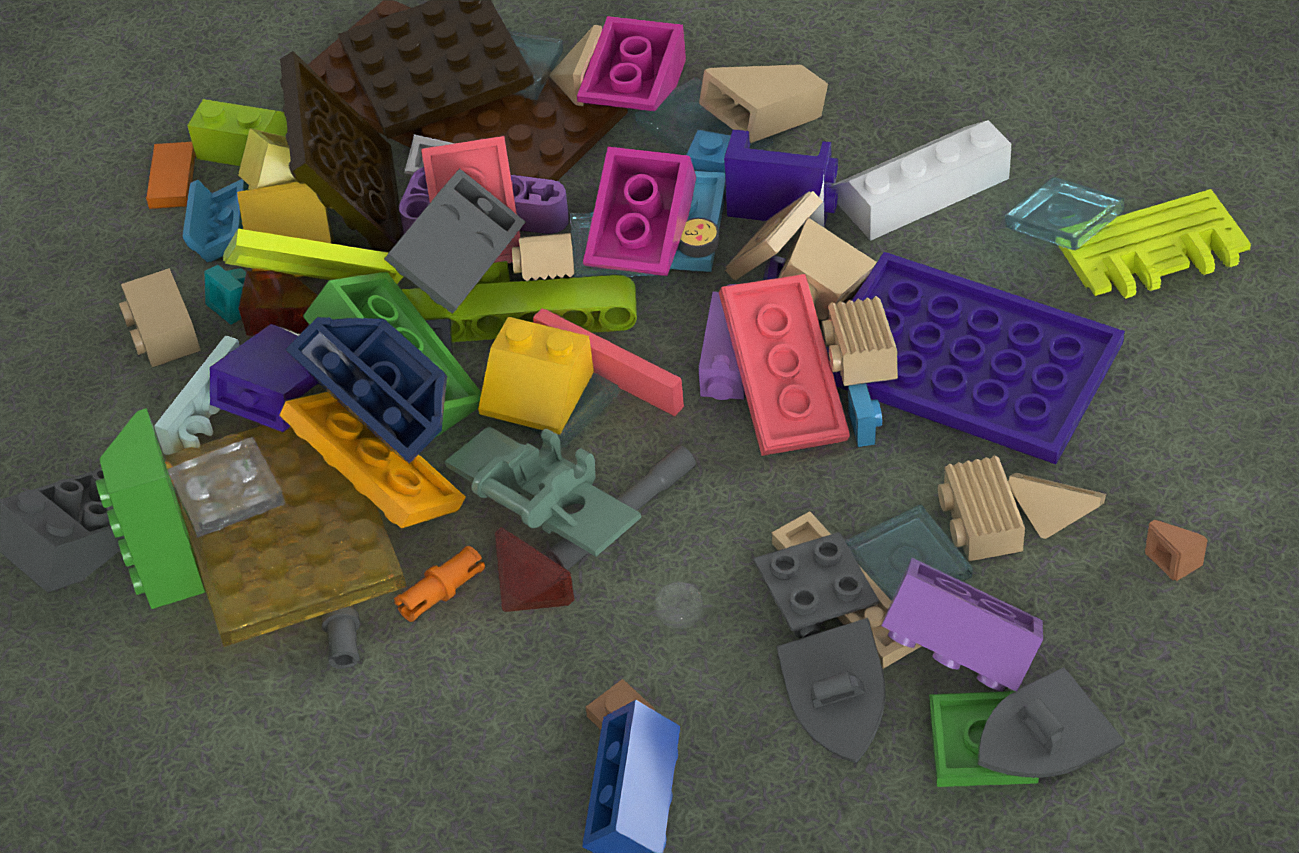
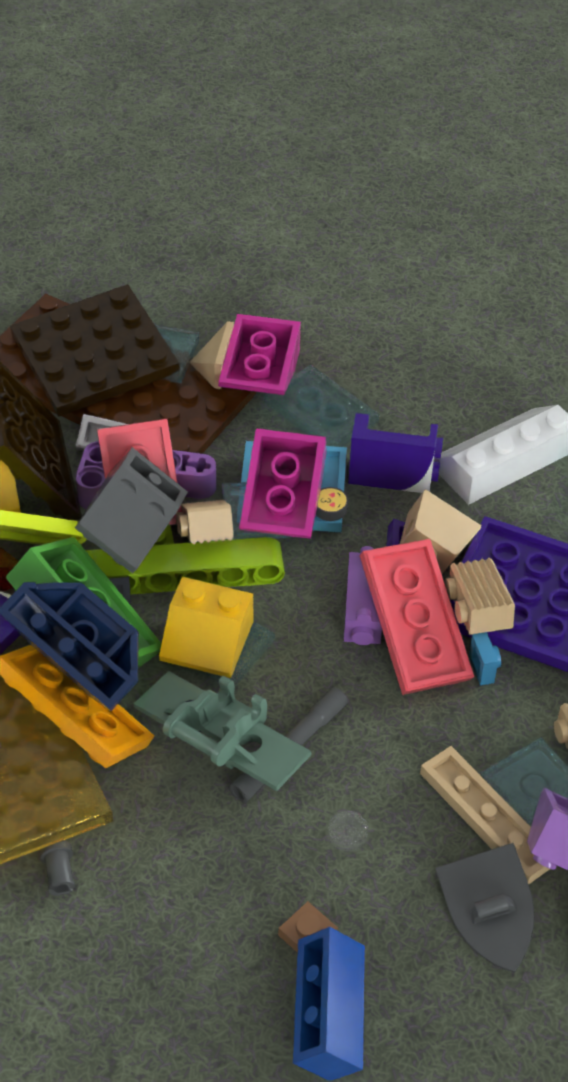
camera: 10 degrees left, 0 degrees up
(439, 583) = (139, 816): orange pin -> none
(529, 577) = (216, 808): clear red slope -> none
(625, 368) = (279, 618): coral tile -> none
(708, 151) = (333, 427): dark azure plate -> none
(763, 97) = (369, 383): tan slope -> none
(773, 235) = (393, 502): tan tile -> none
(815, 583) = (464, 810): dark grey hinge -> none

